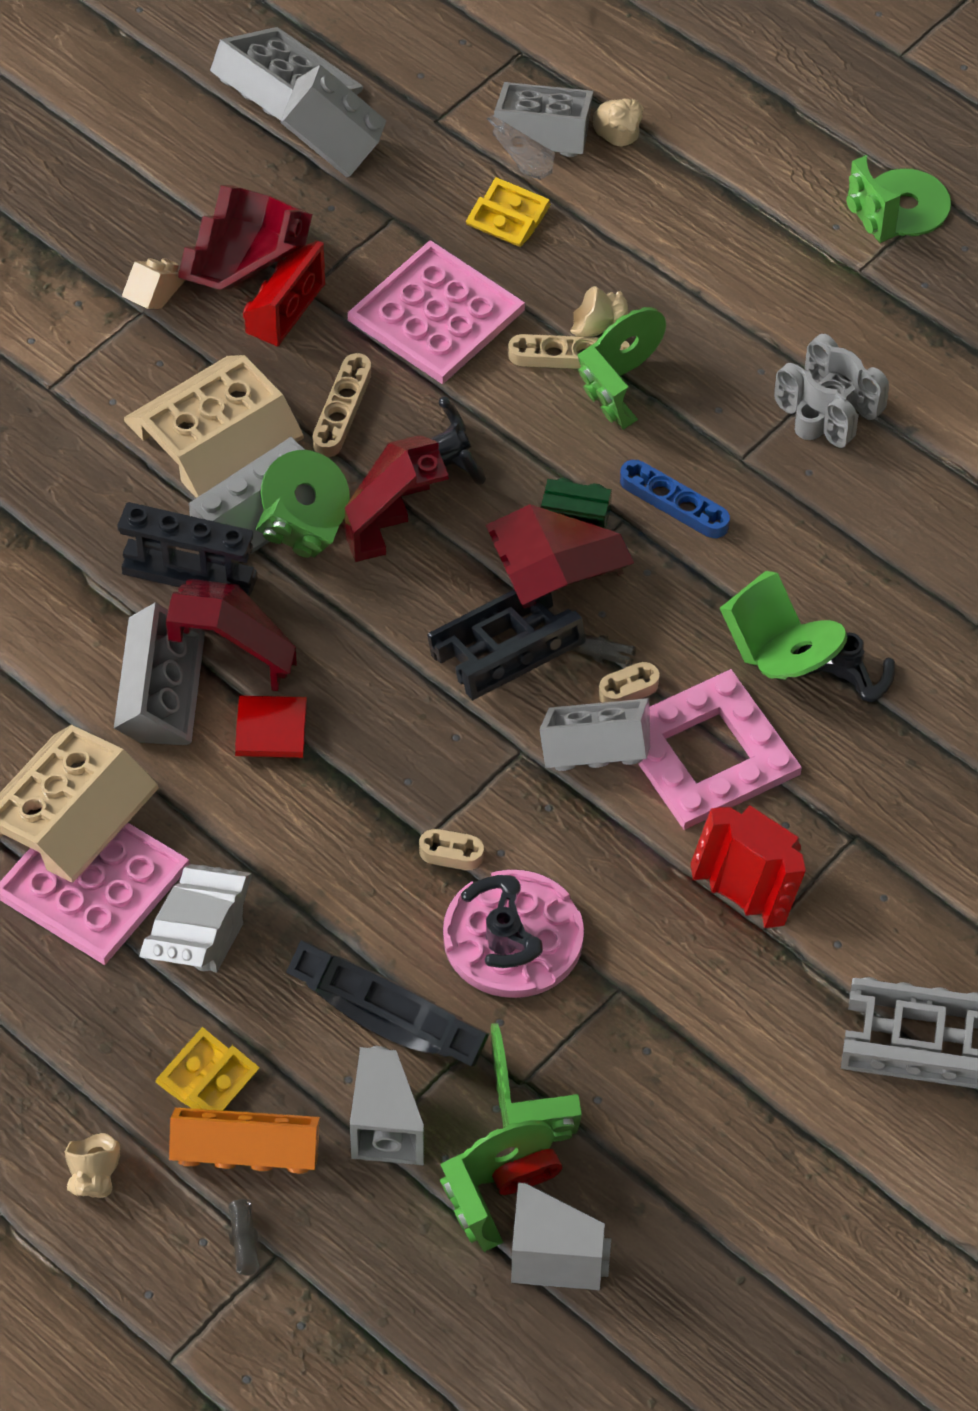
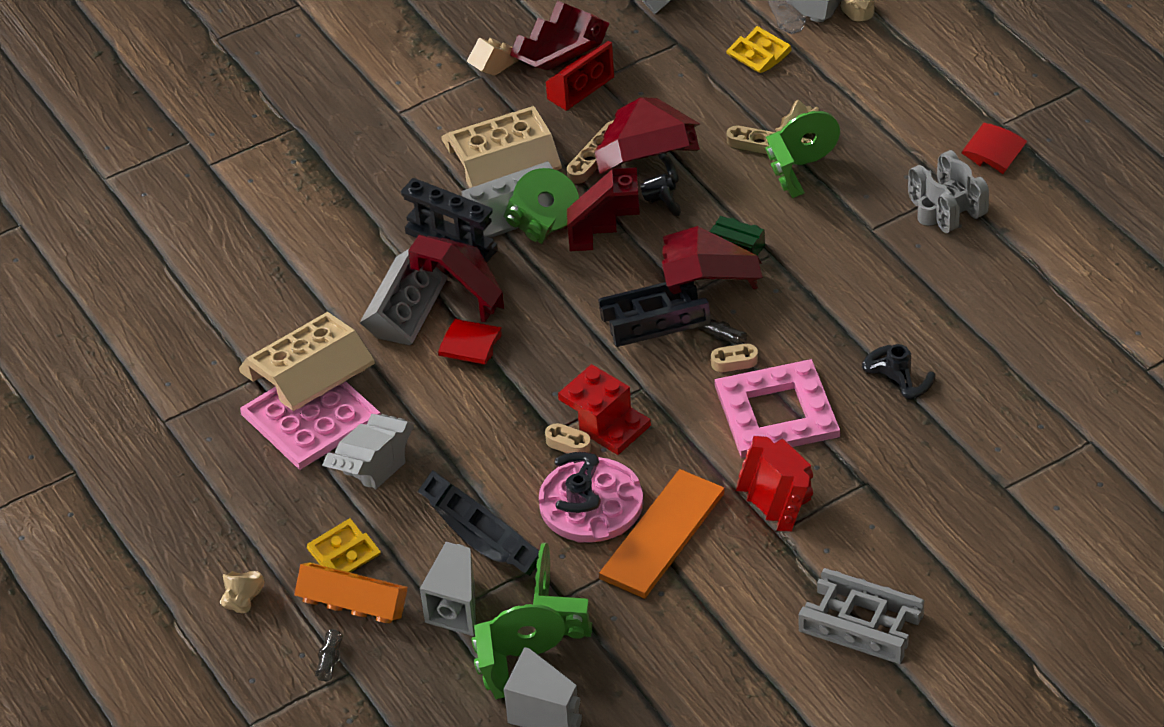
camera: 20 degrees right, 10 degrees down
(407, 371) = (645, 130): none -> dark red panel
(436, 311) = (694, 93): bright pink plate -> none
(490, 798) = (604, 409): none -> red bracket
(529, 1170) = (550, 649): red beam -> none
(596, 734) = (695, 382): light grey slope -> none
(620, 964) = (661, 533): none -> orange tile
(678, 494) = (815, 243): blue beam -> none
(770, 630) = (847, 334): bright green piece -> none
(862, 310) = (994, 146): none -> red slope
(879, 206) = (1032, 82): bright green piece -> none

